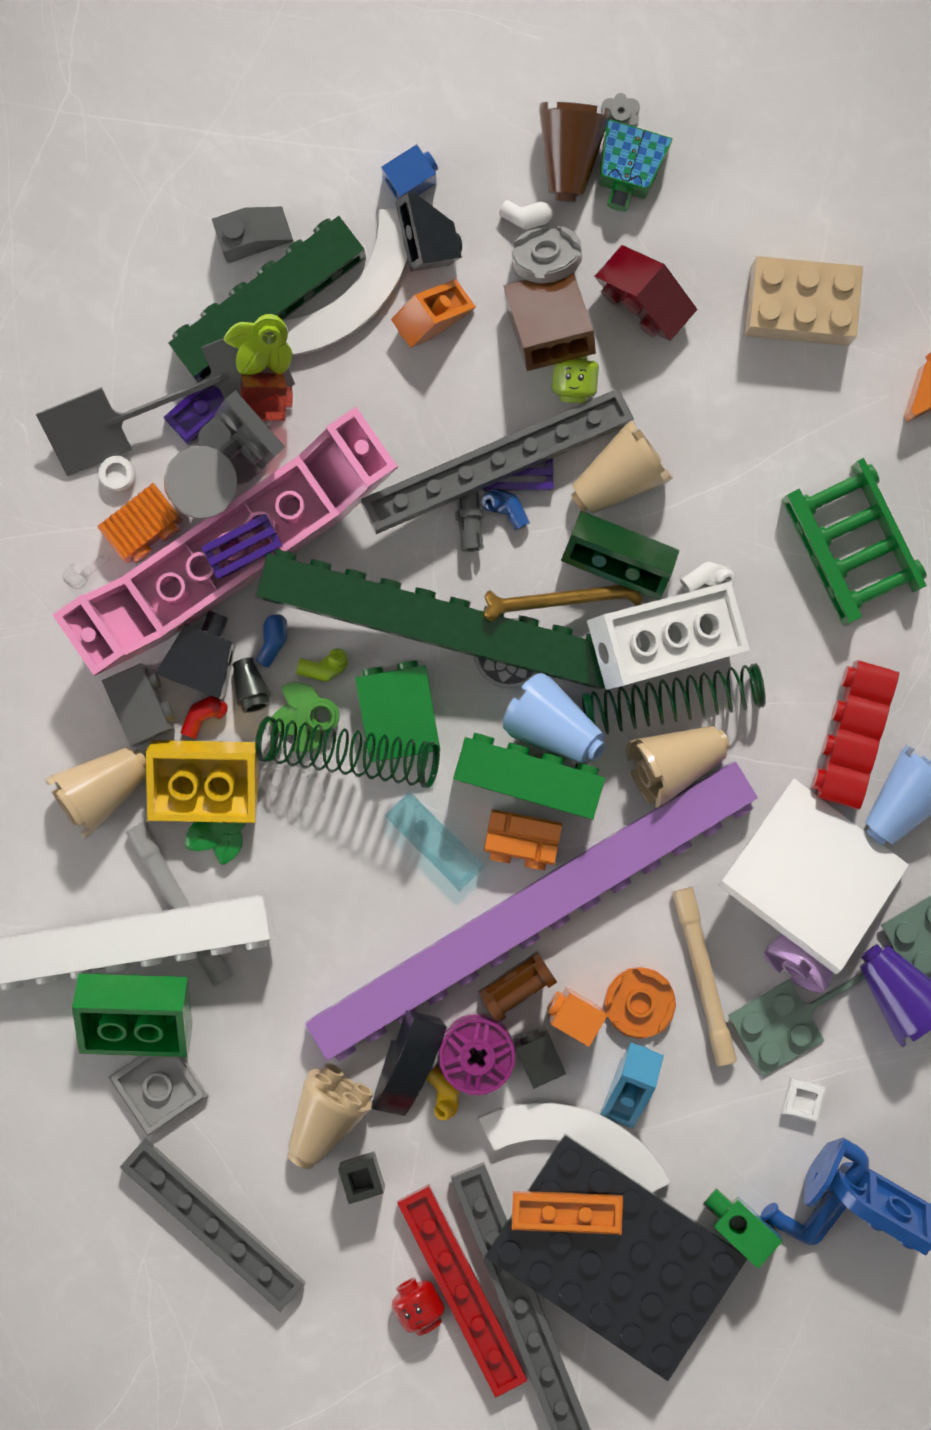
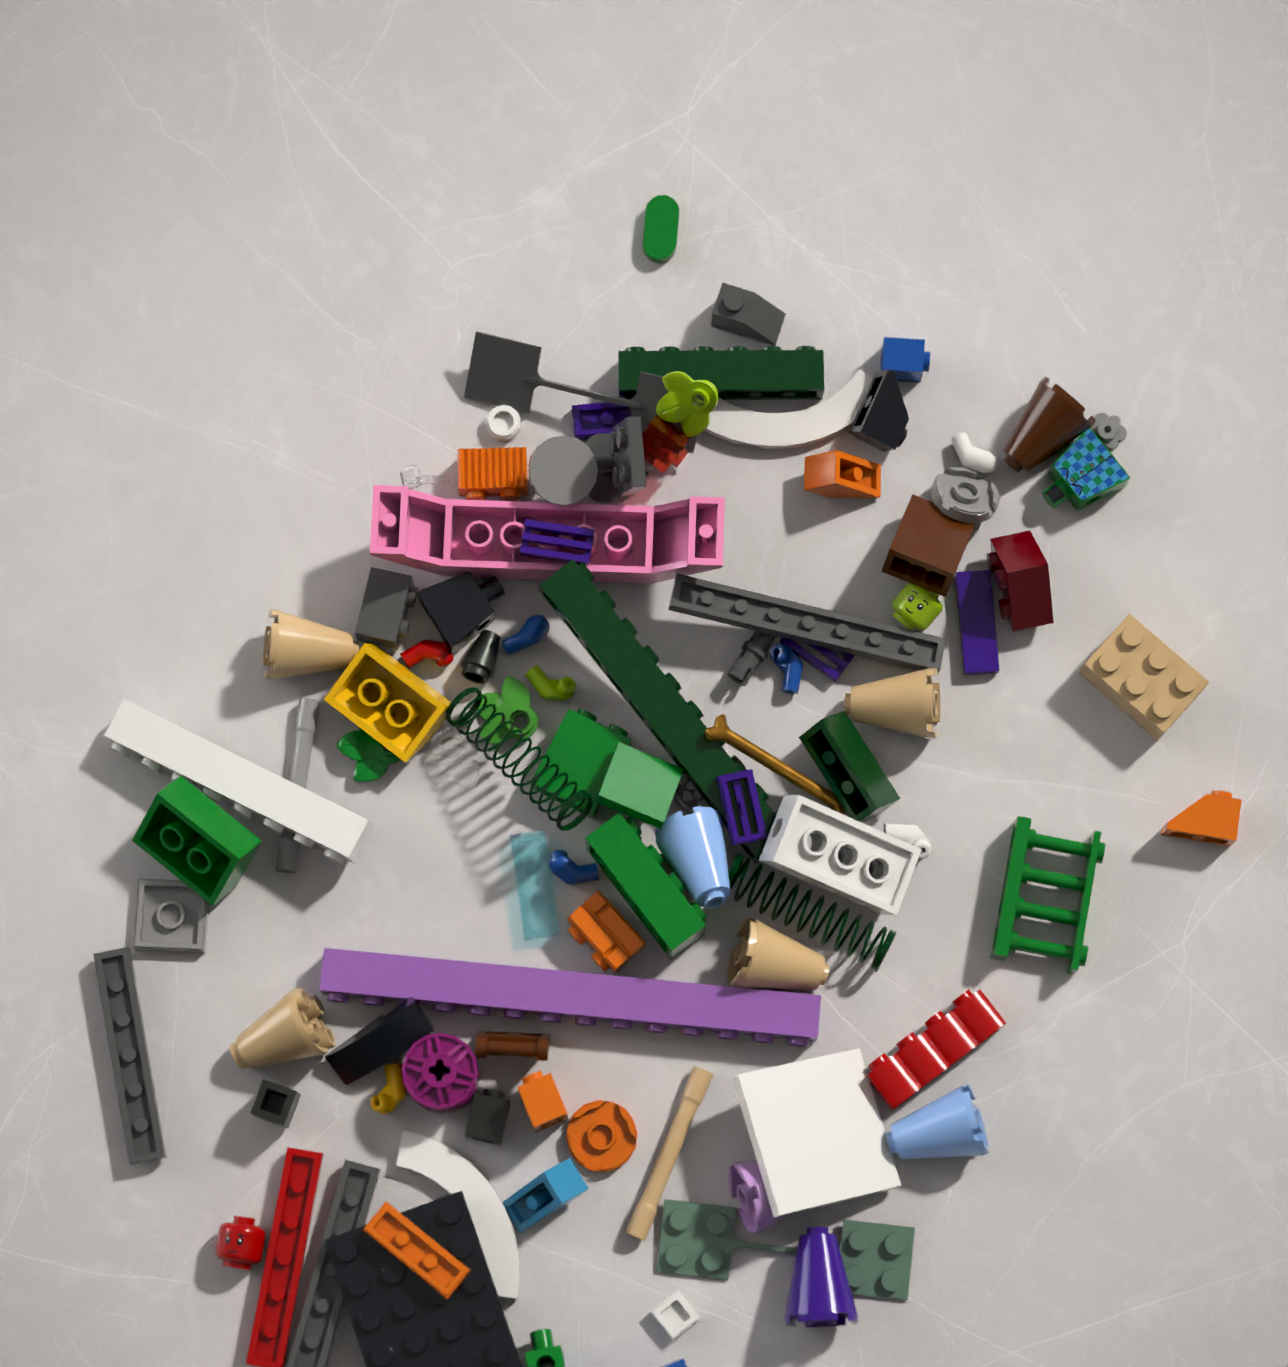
camera: 40 degrees right, 10 degrees down
(122, 209) = (660, 228): none -> green tile
(454, 808) = (569, 871): none -> blue arm
(463, 700) = (639, 785): none -> tile
(536, 636) = (728, 811): none -> dark purple tile
(633, 355) = (977, 622): none -> dark purple tile

